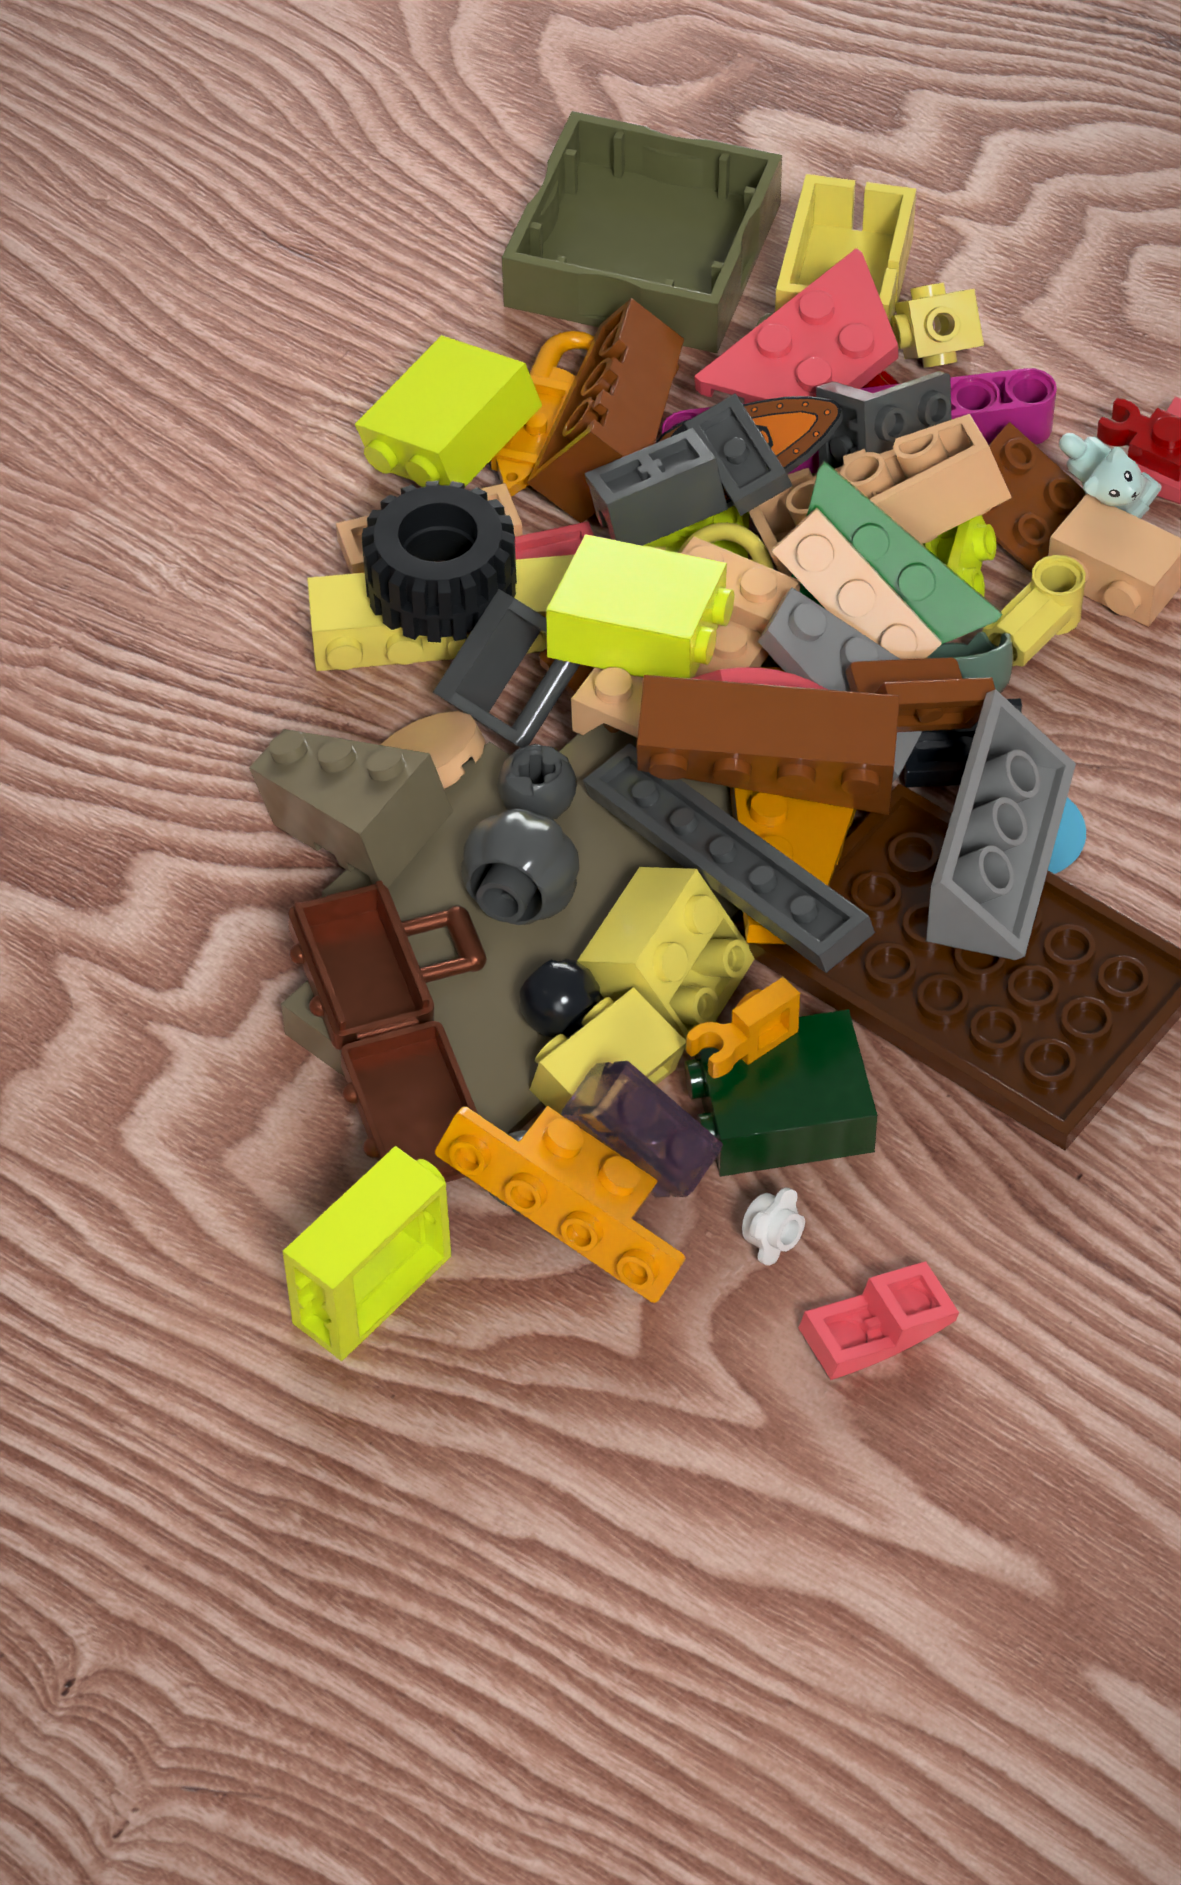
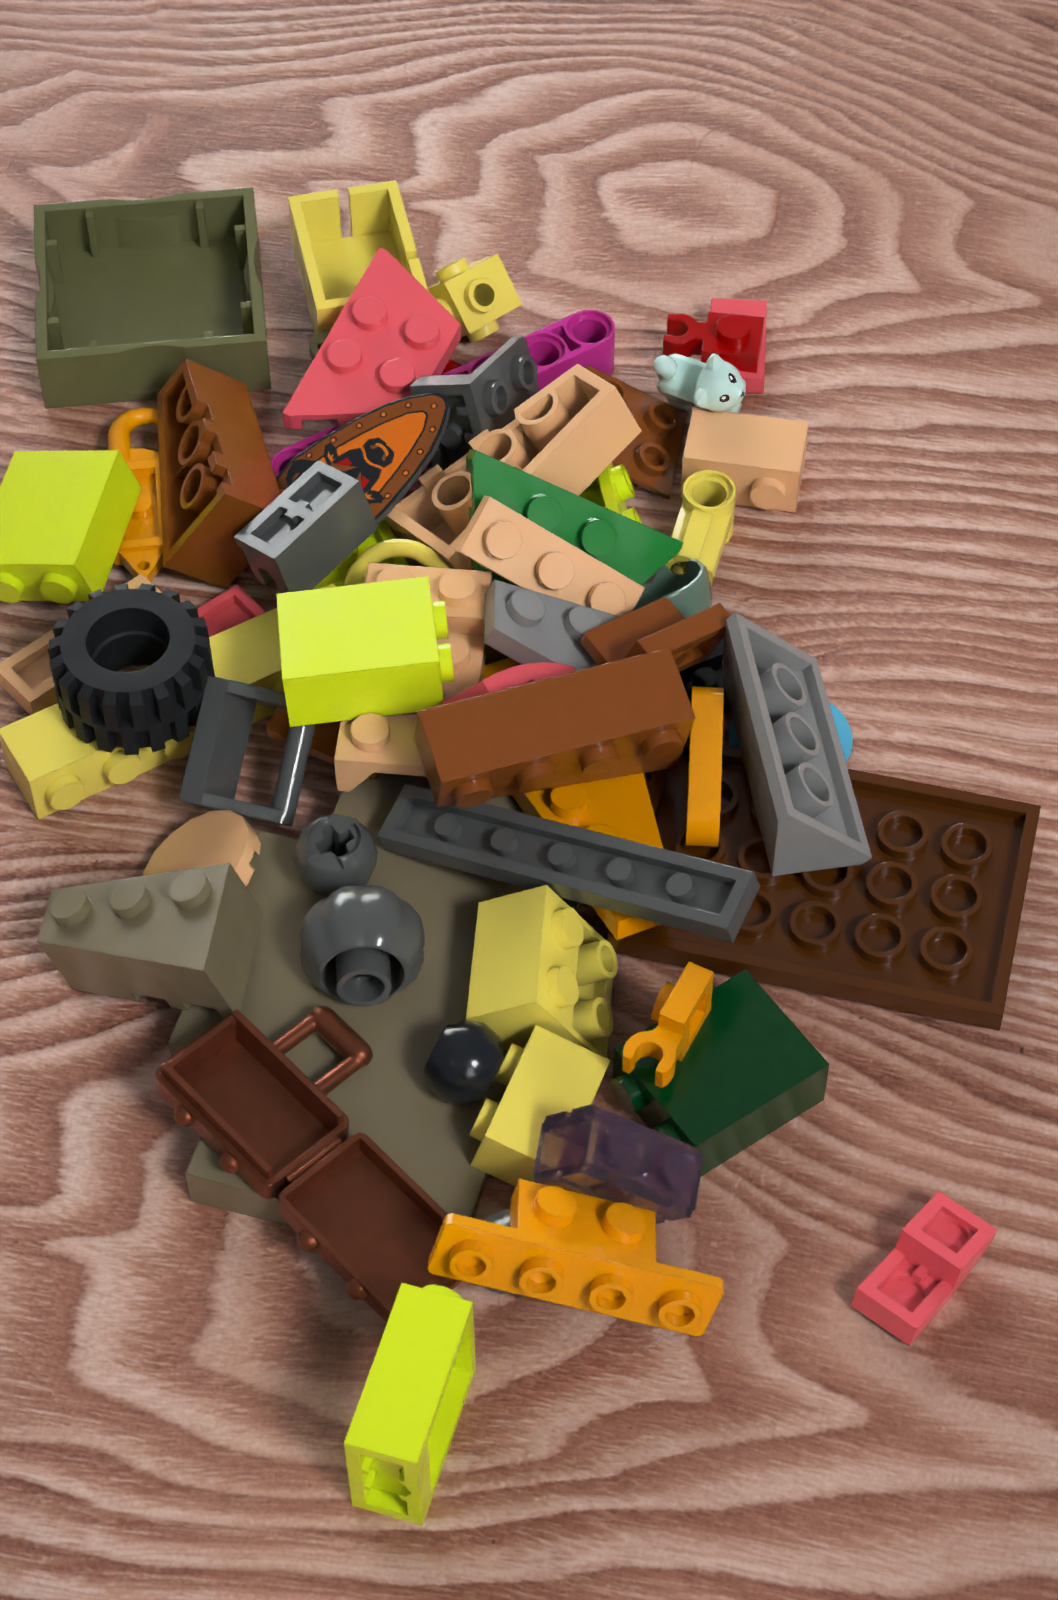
camera: 25 degrees left, 0 degrees up
(744, 458) = (387, 477): dark grey plate -> none
(773, 1224) = (779, 1211): white plate -> none
(910, 821) = (705, 767): none -> light orange beam

